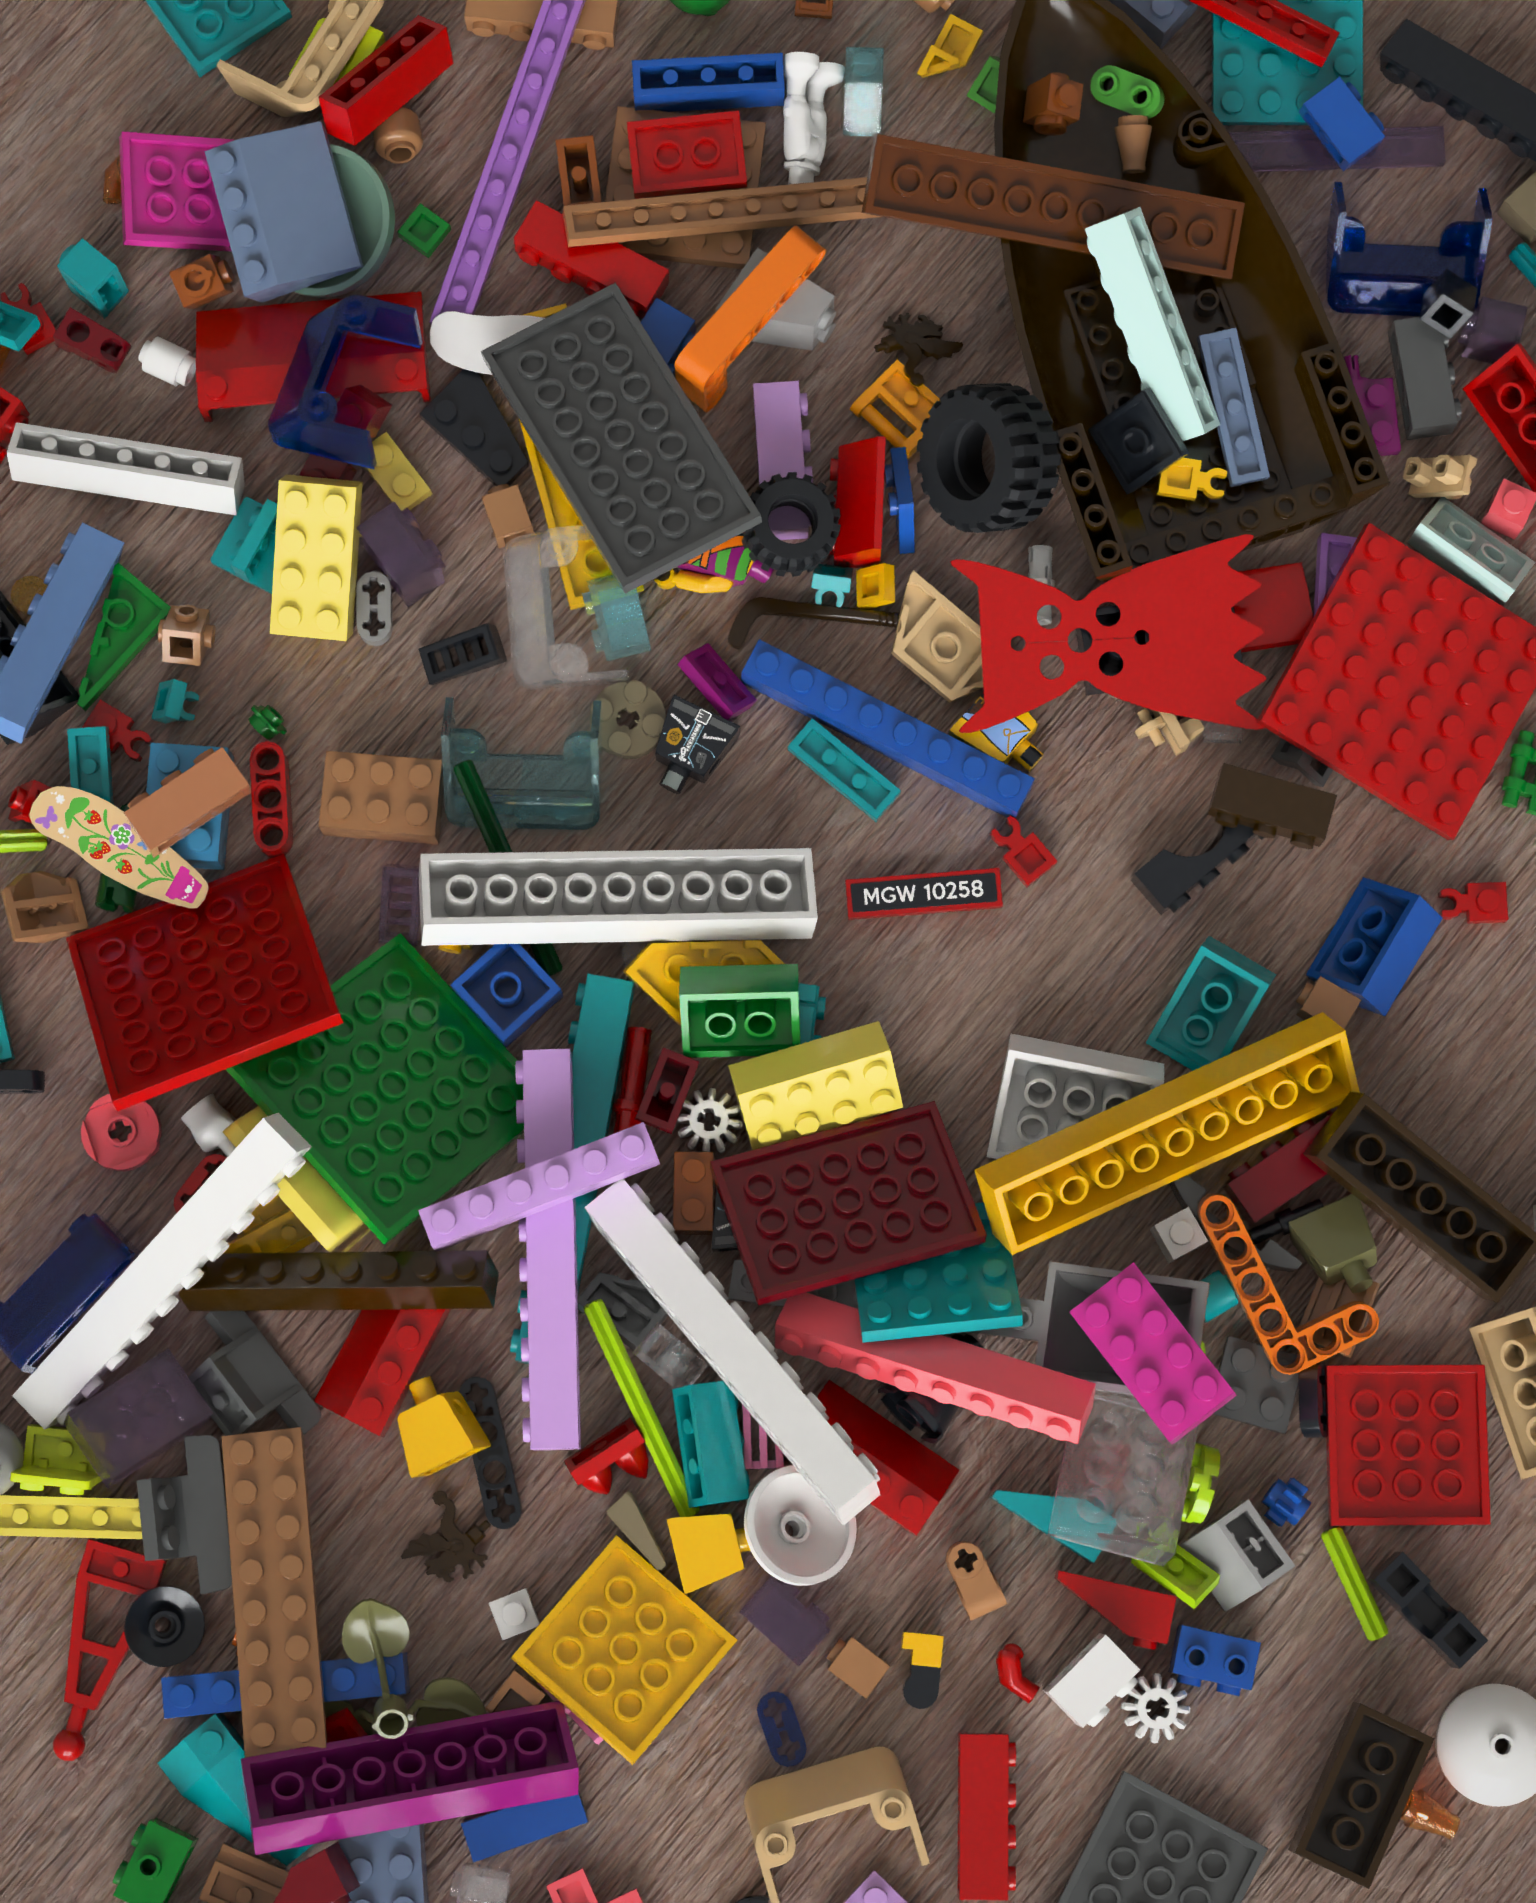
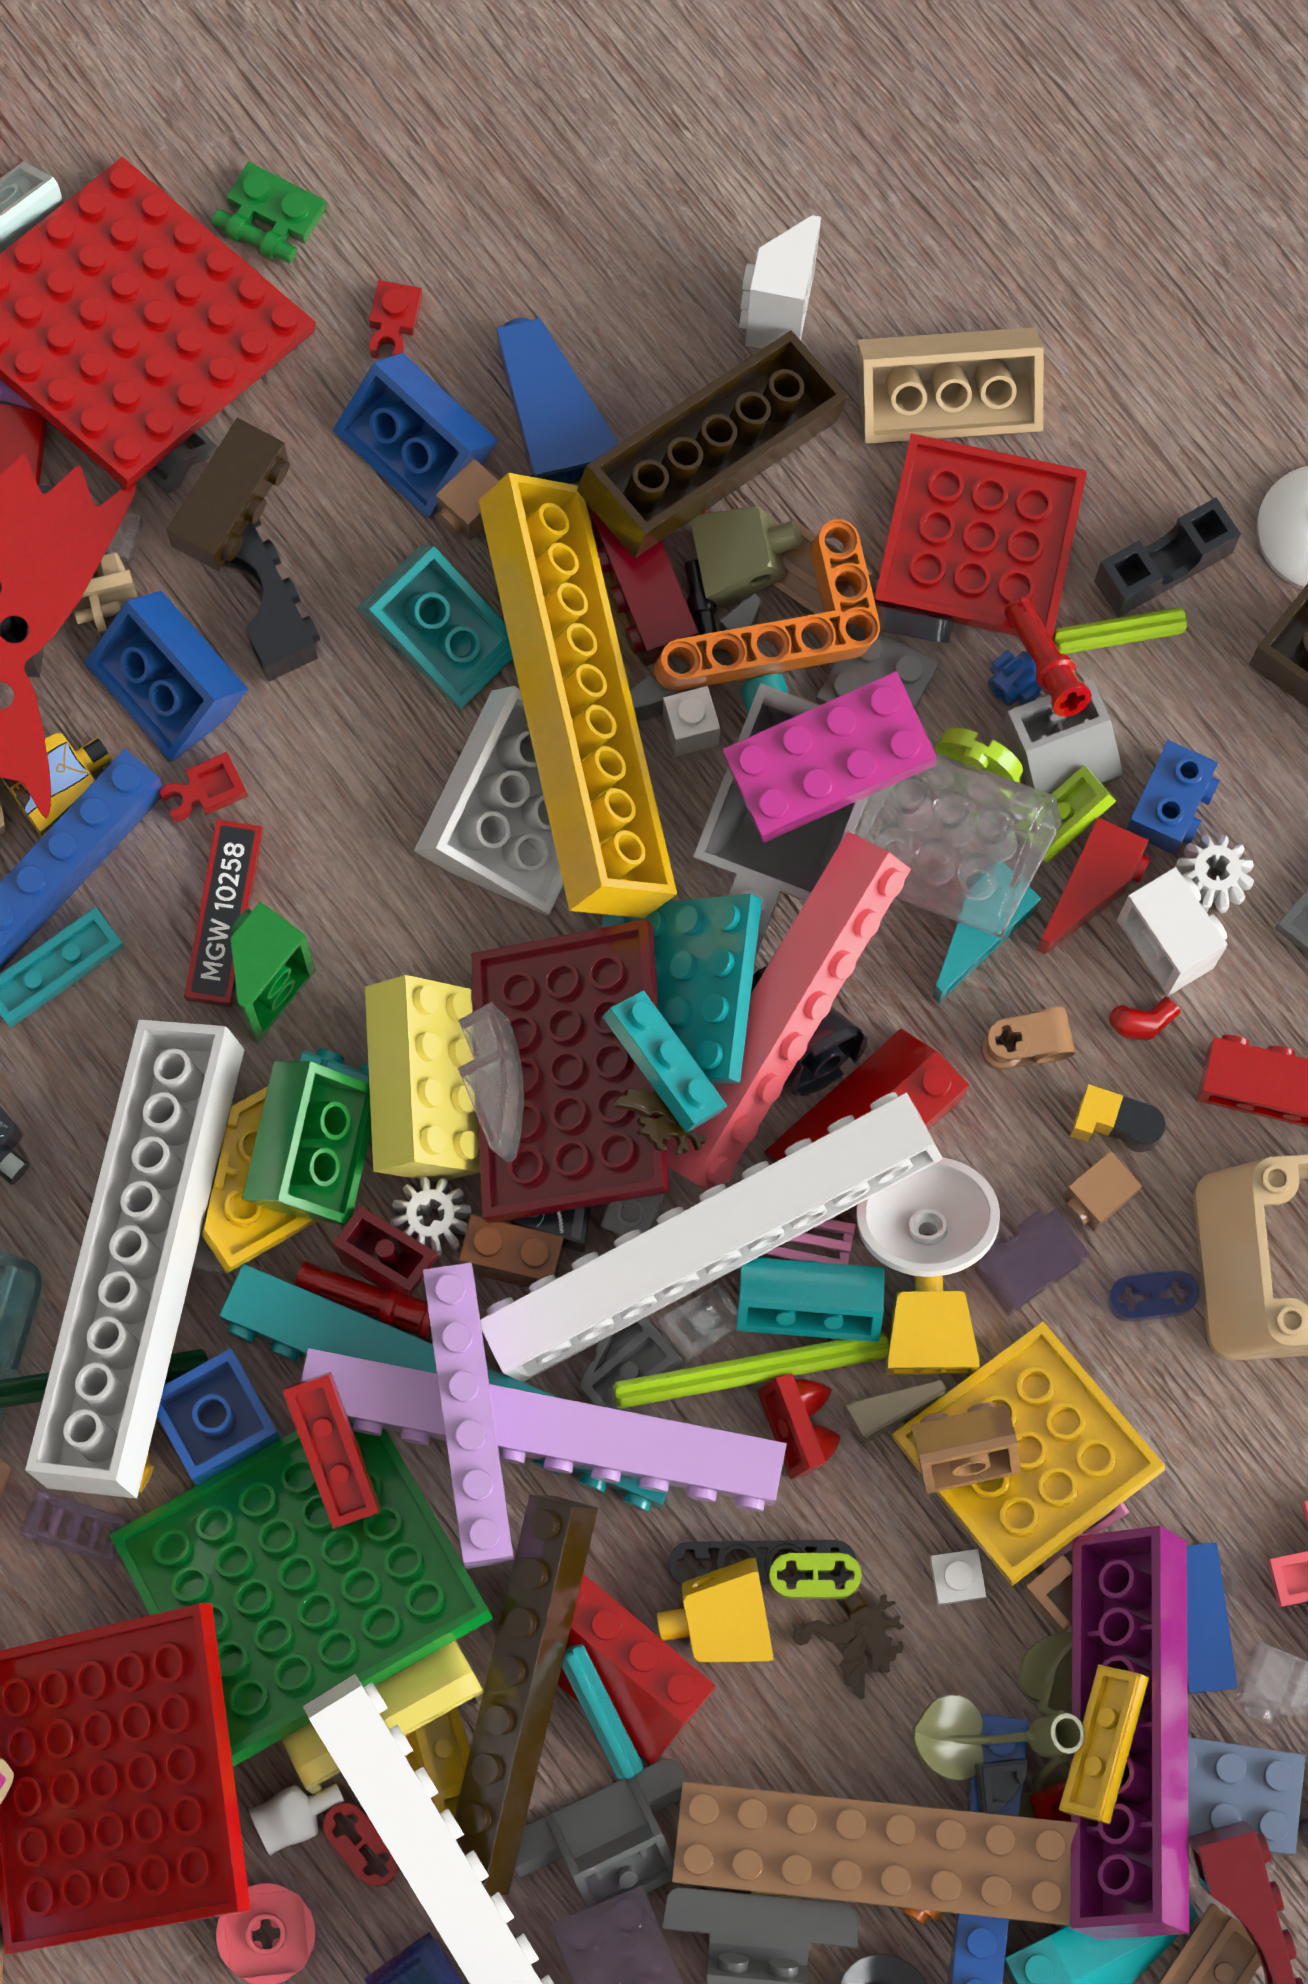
camera: 80 degrees left, 5 degrees down
(342, 1350) = (601, 1712): none -> teal axle
(347, 1679) = (999, 1783): none -> black tile
(391, 1758) = (1108, 1736): none -> yellow tile
(476, 1499) = (815, 1564): none -> lime beam
(492, 1086) = (331, 1450): none -> red plate
(612, 1594) = (966, 1447): none -> medium nougat slope
(821, 1296) = (659, 1129): none -> dark brown piece
(824, 1143) = (494, 1078): none -> clear slope
(863, 1276) = (664, 1061): none -> teal plate
(873, 936) = (269, 966): none -> green slope
(1112, 795) = (165, 674): none -> blue slope
(1292, 1530) = (1053, 670): none -> red pin
(1422, 1057) = (552, 408): none -> blue slope

